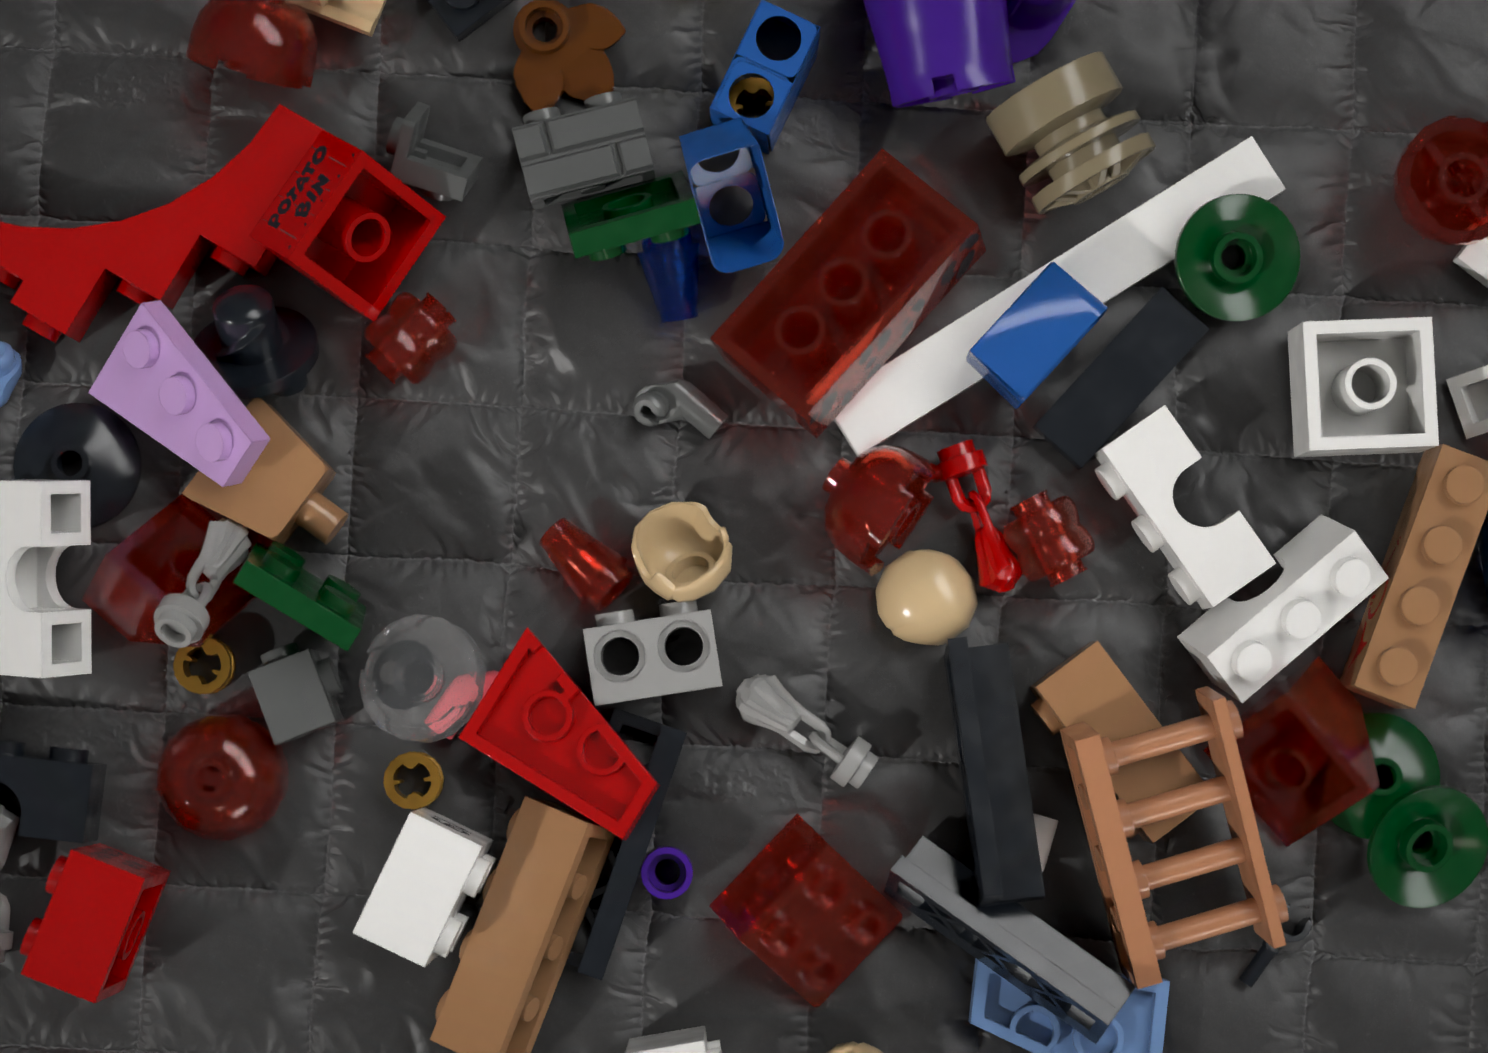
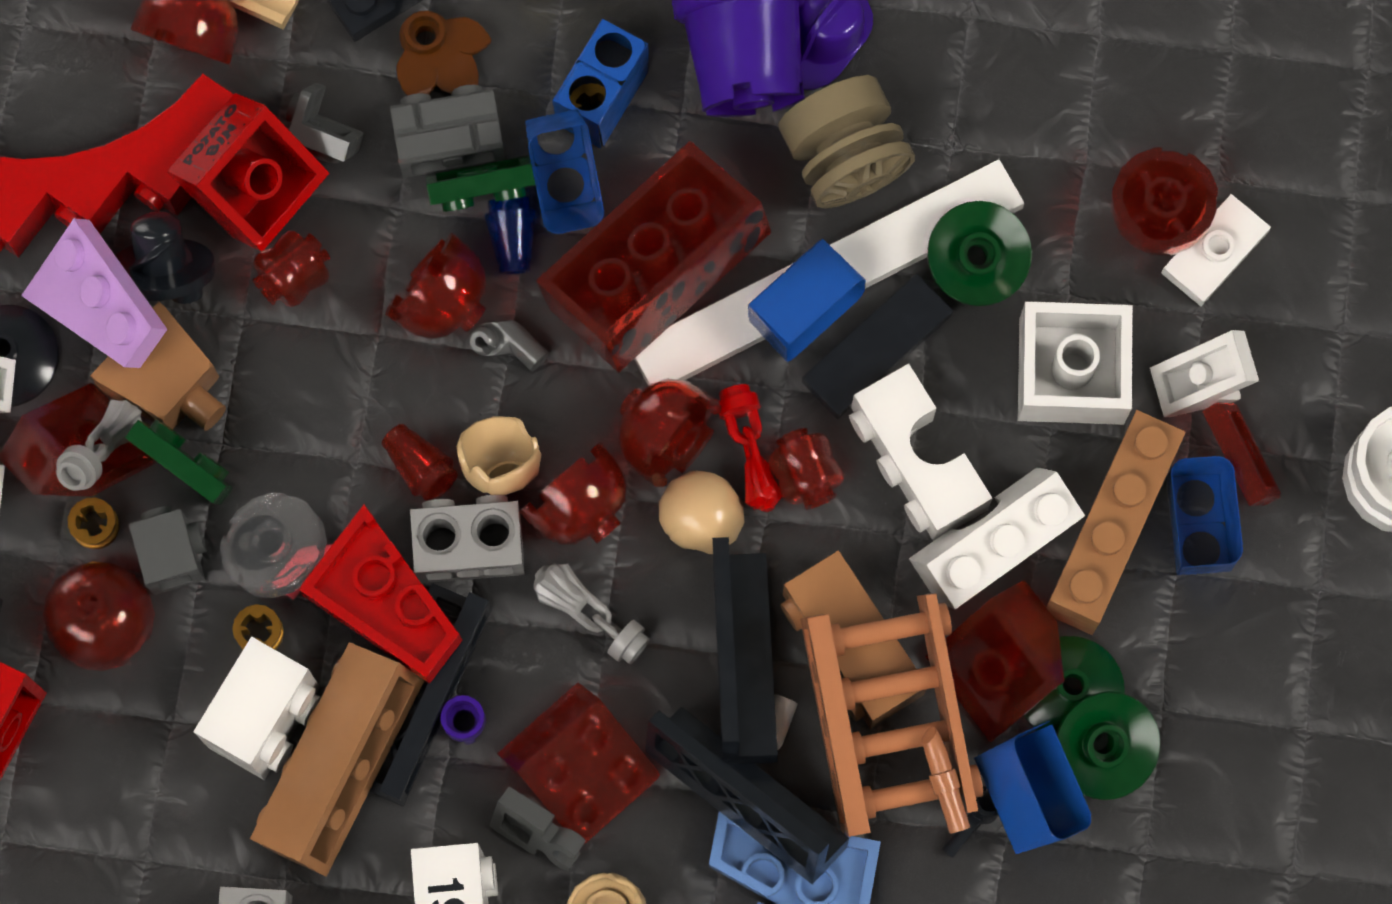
camera: 10 degrees right, 10 degrees down
(596, 354) = (442, 292): none -> clear red cylinder
(754, 990) = (530, 826): none -> dark grey plate
(784, 600) = (581, 501): none -> clear red cylinder
(1245, 914) = (944, 781): none -> nougat piece
(1347, 909) = (1034, 789): none -> blue piece

